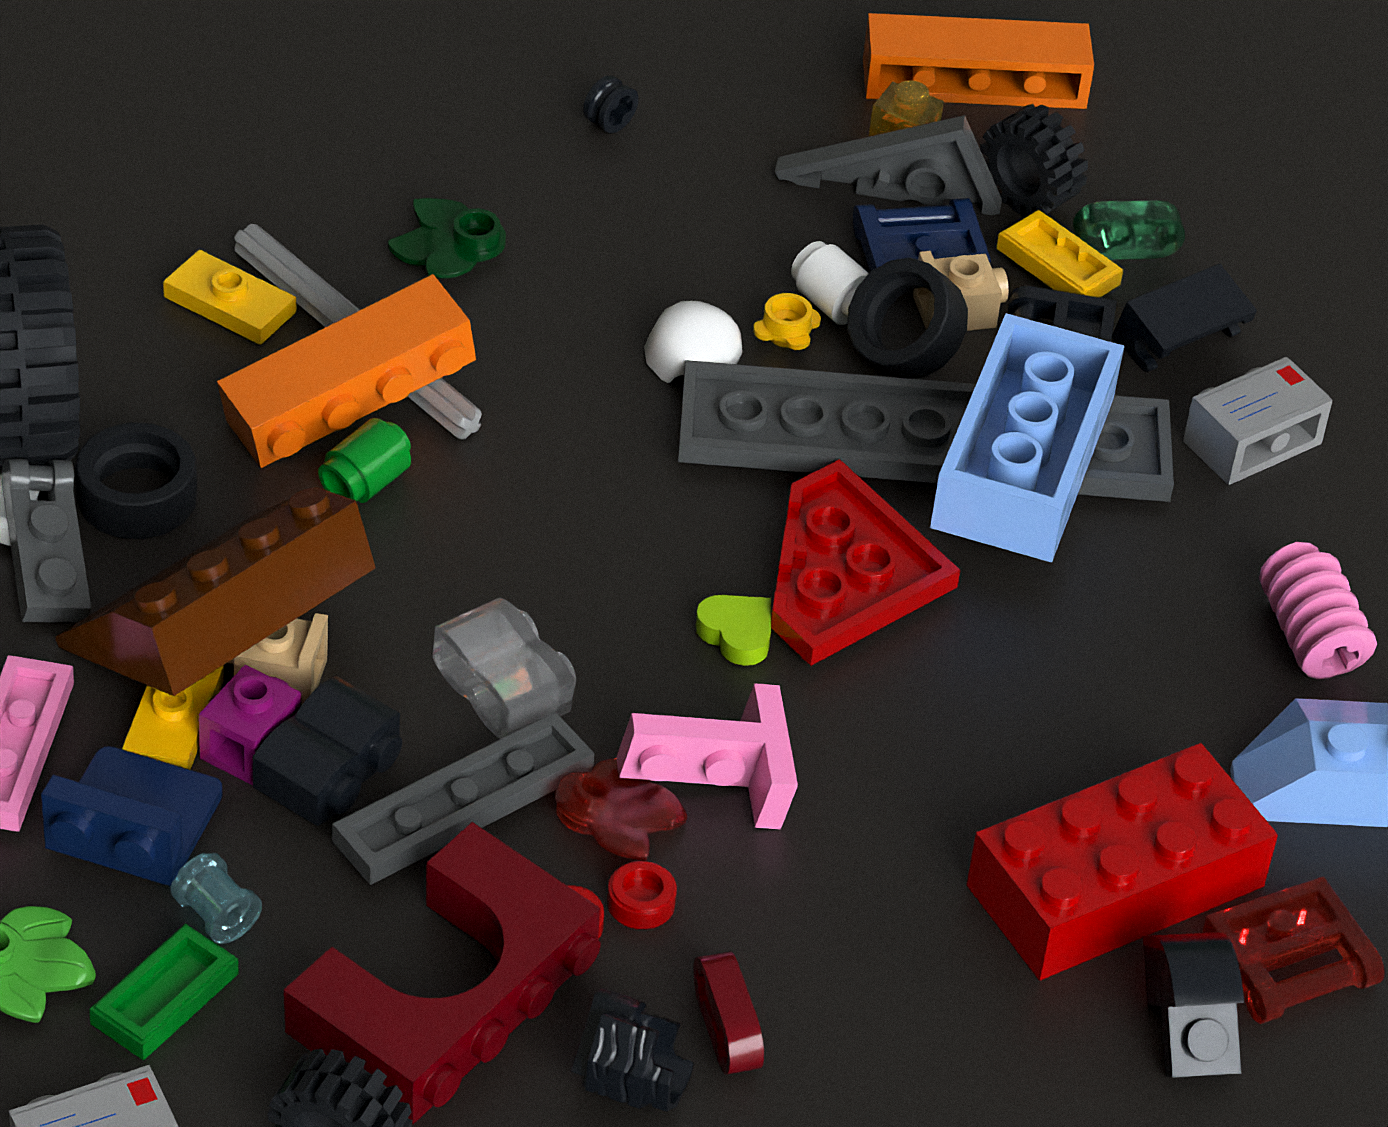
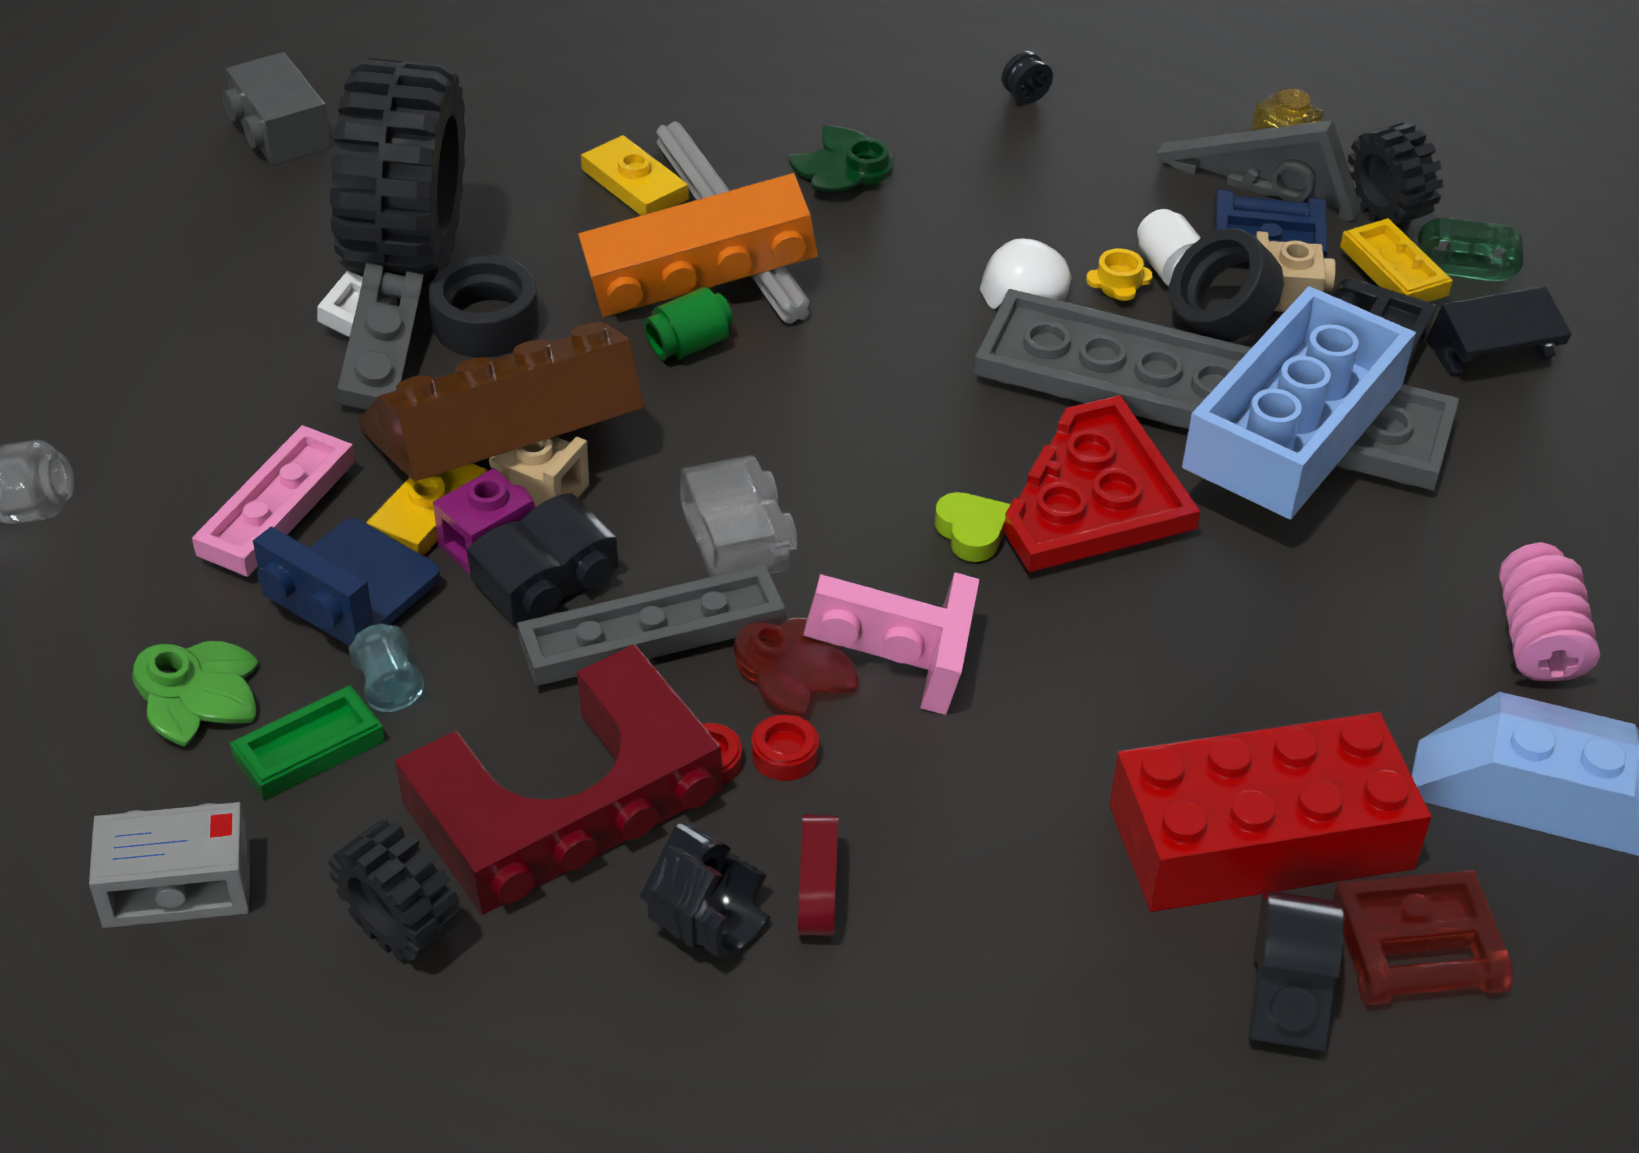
camera: 20 degrees right, 0 degrees up
(981, 59) = (1380, 89): orange brick -> none
(1257, 420) = (1543, 431): light grey brick -> none

